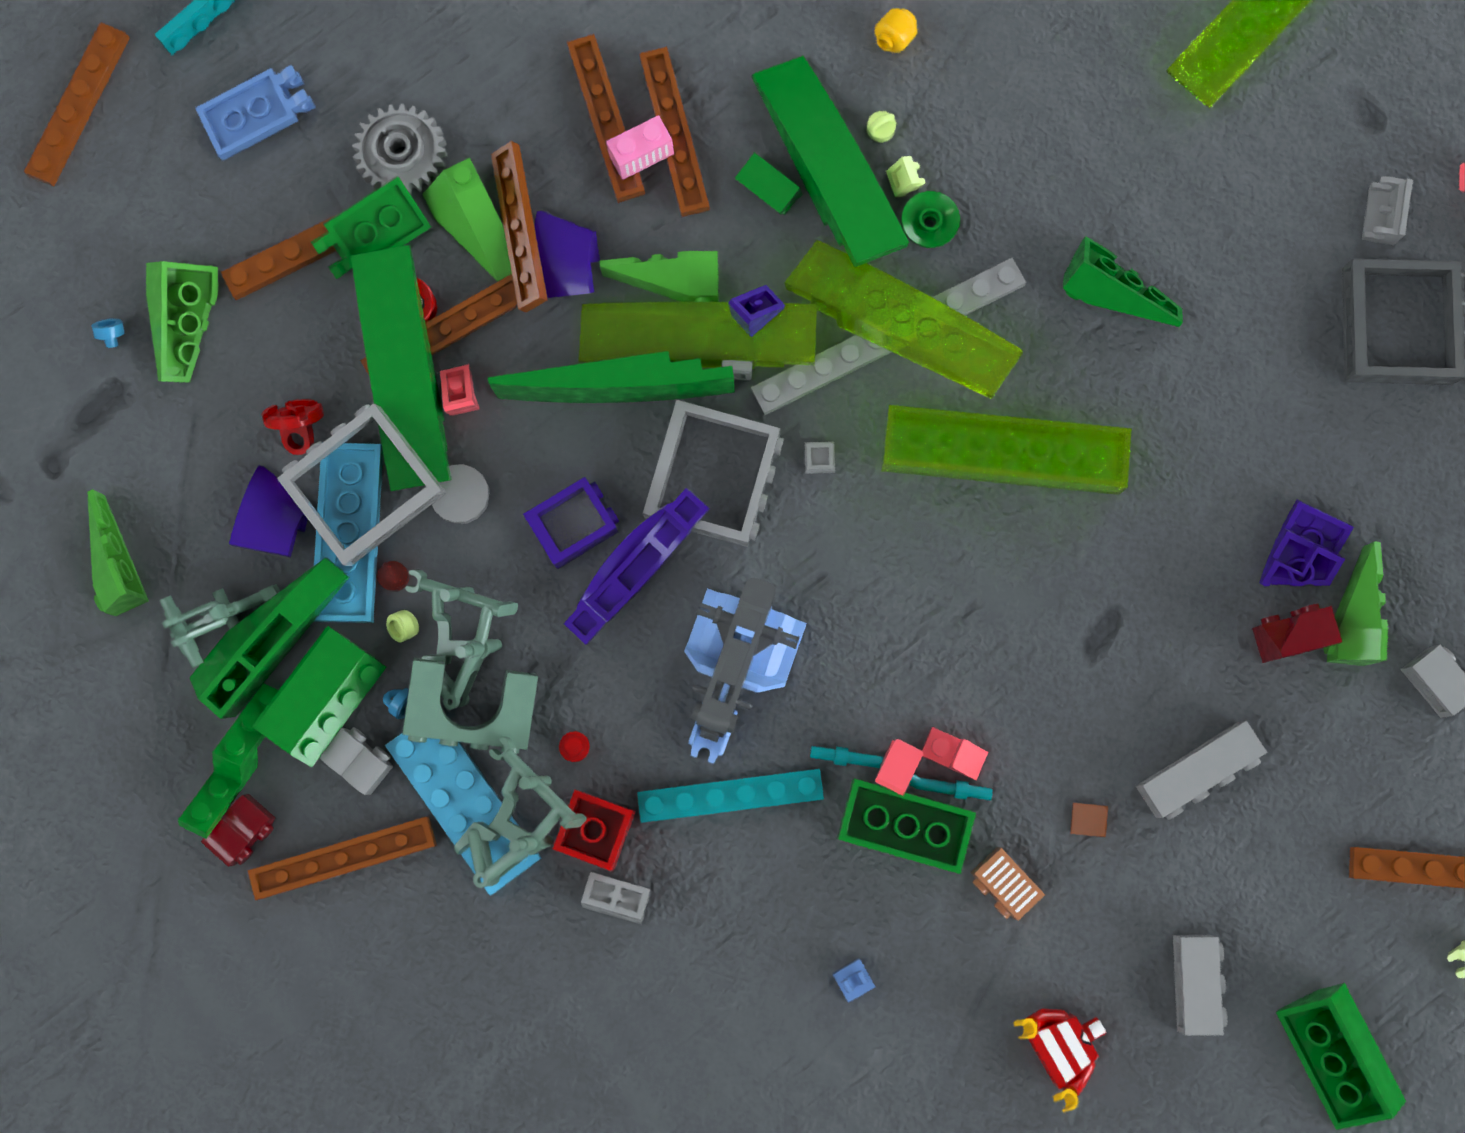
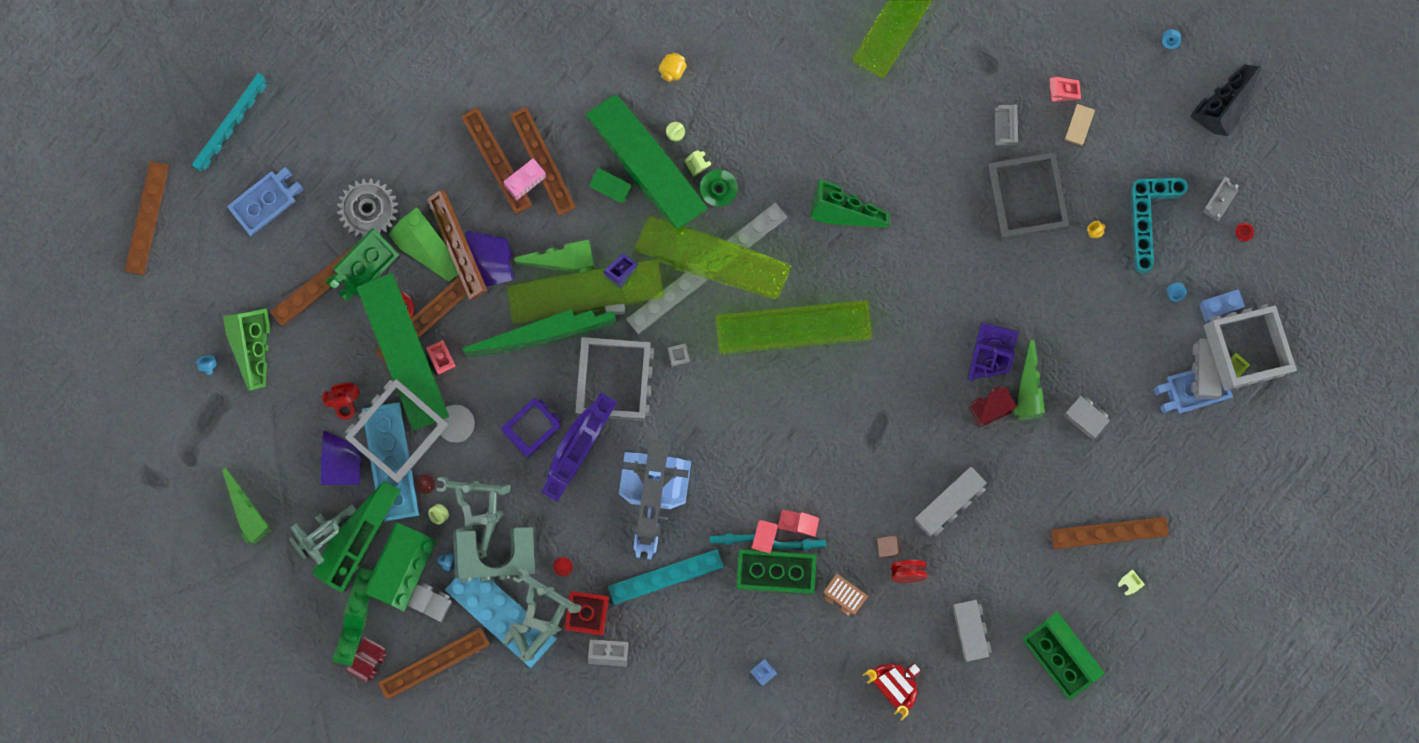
camera: 20 degrees left, 0 degrees up
(1116, 867) = (908, 571): none -> red head

